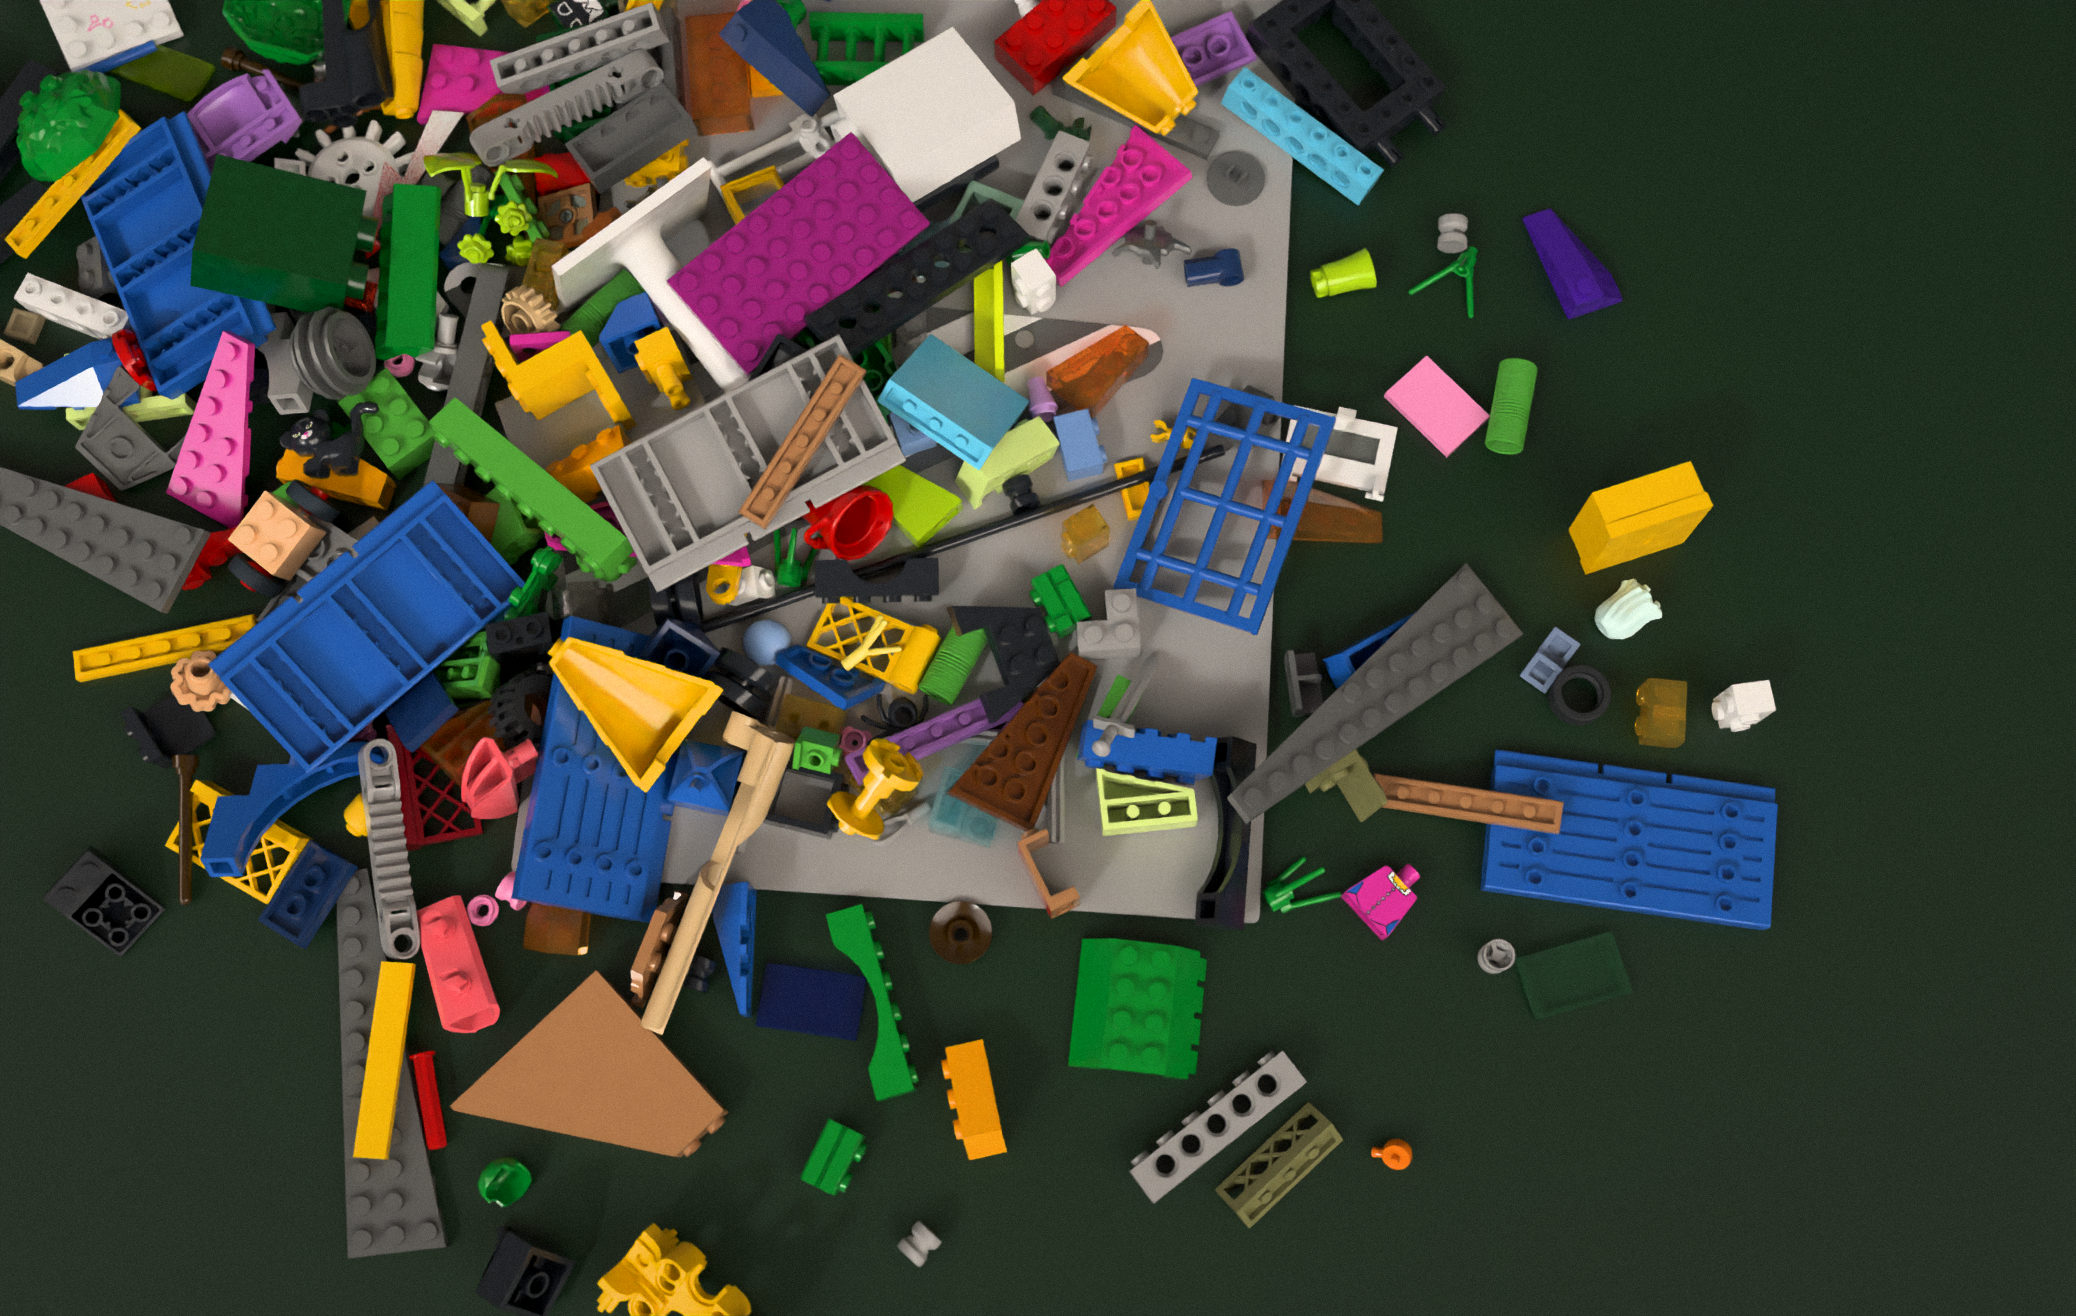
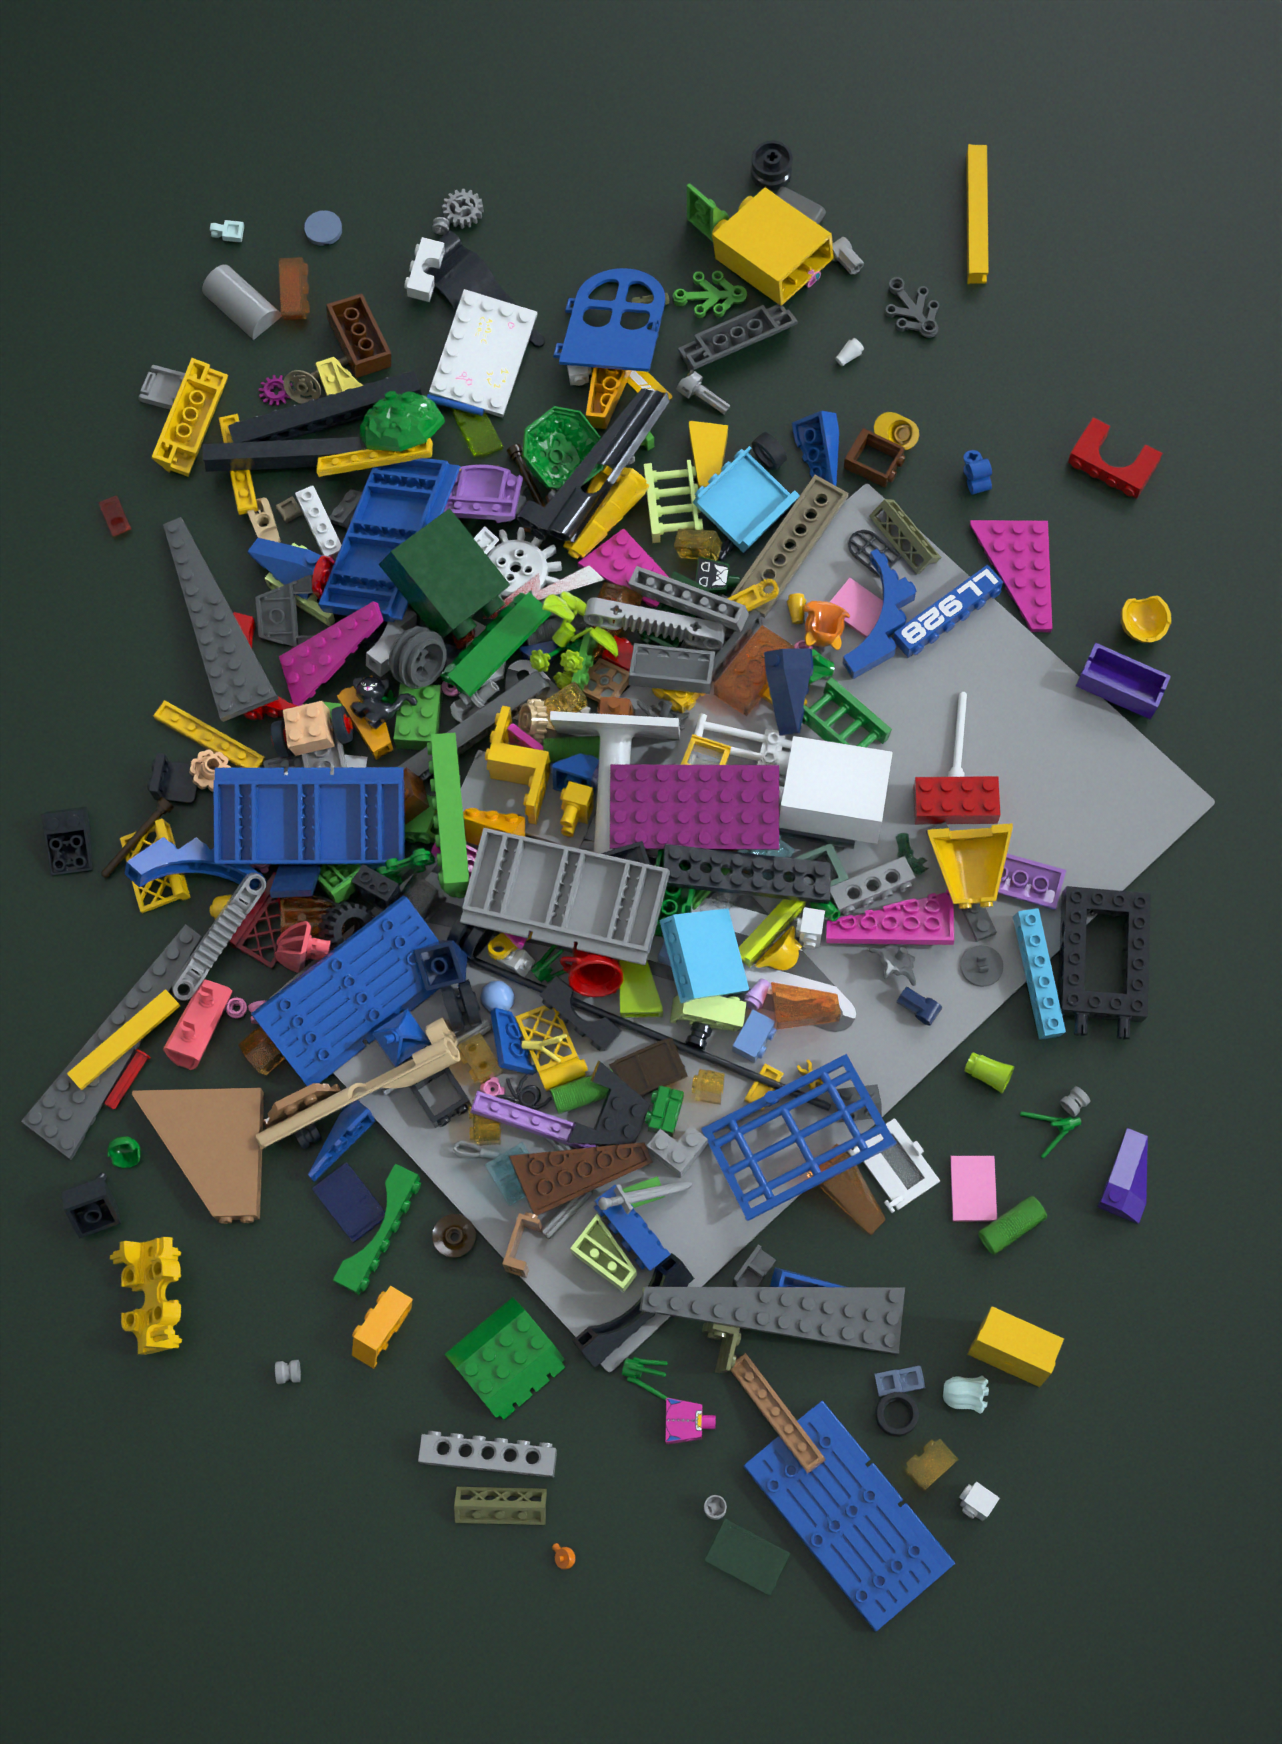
camera: 45 degrees right, 5 degrees down
(307, 894) = (163, 923): dark blue tile -> none
(632, 703) = (394, 968): yellow cone -> none
(802, 442) = (598, 909): medium nougat tile -> none
(817, 750) = (466, 1075): bright green brick -> none
(833, 1158) = (287, 1289): green brick -> none
(887, 772) = (488, 1118): yellow piece -> none
(1002, 569) = (650, 1067): none -> dark brown piece
(1026, 334) = (782, 953): none -> yellow hat

